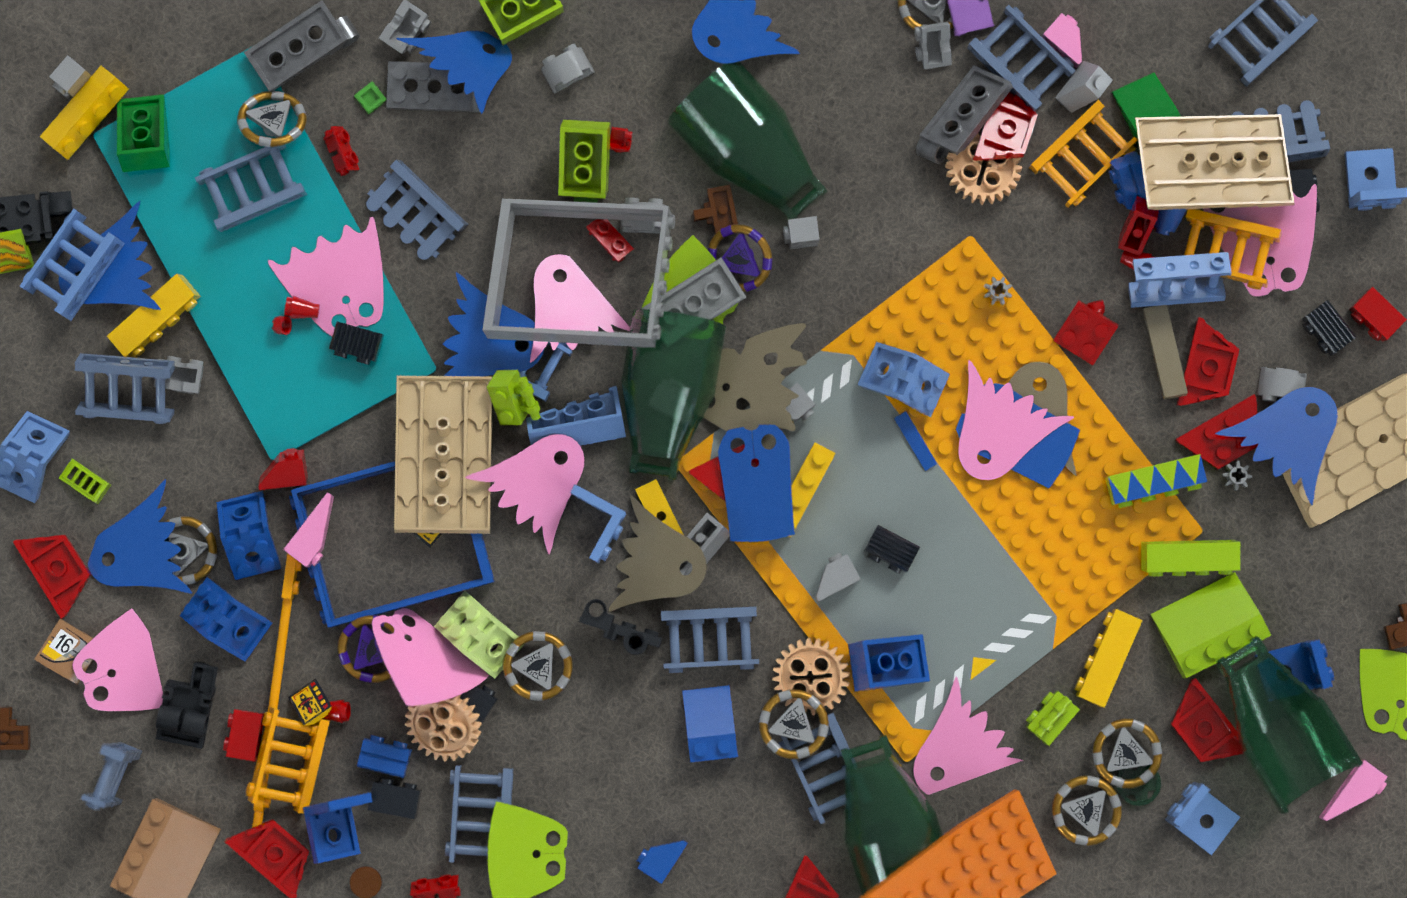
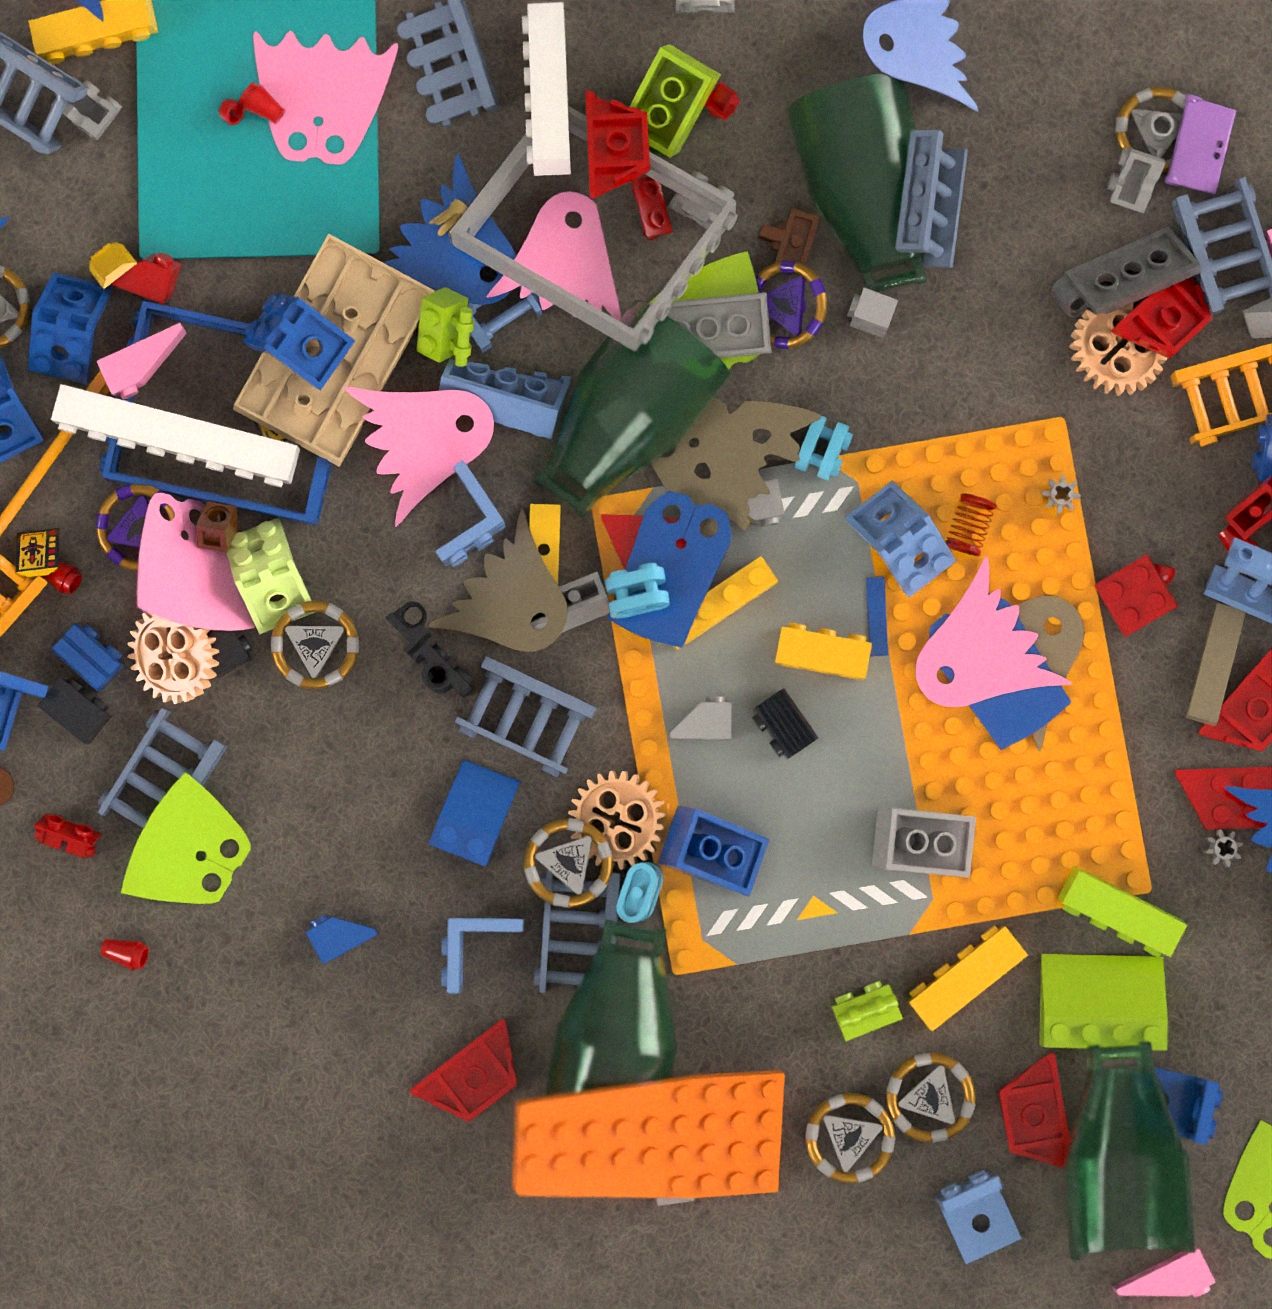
camera: 30 degrees right, 0 degrees up
(254, 475) = (110, 263): none -> yellow piece
(356, 342) = (304, 173): black brick -> none
(365, 571) = (175, 434): none -> white brick
(404, 460) = (285, 331): none -> blue bracket
(427, 620) = (217, 526): none -> reddish brown brick
(475, 319) = (450, 217): none -> pearl gold piece
(496, 194) = (548, 89): none -> white brick
(563, 209) = (615, 144): none -> red wing
(743, 821) = (453, 945): none -> medium blue bracket
(744, 498) = (624, 582): none -> medium azure brick
(801, 133) = (931, 199): none -> sand blue fence
(827, 352) = (829, 463): none -> medium azure brick
(853, 718) = (640, 892): none -> medium azure brick
(892, 485) = (823, 652): none -> yellow brick
(943, 326) = (970, 549): none -> red piece
(959, 747) = (743, 989): bright pink piece -> none
(1029, 580) = (923, 841): none -> light grey slope
(1140, 792) = (923, 1150): clear green wheel -> none
(1156, 479) = (1129, 804): brick -> none

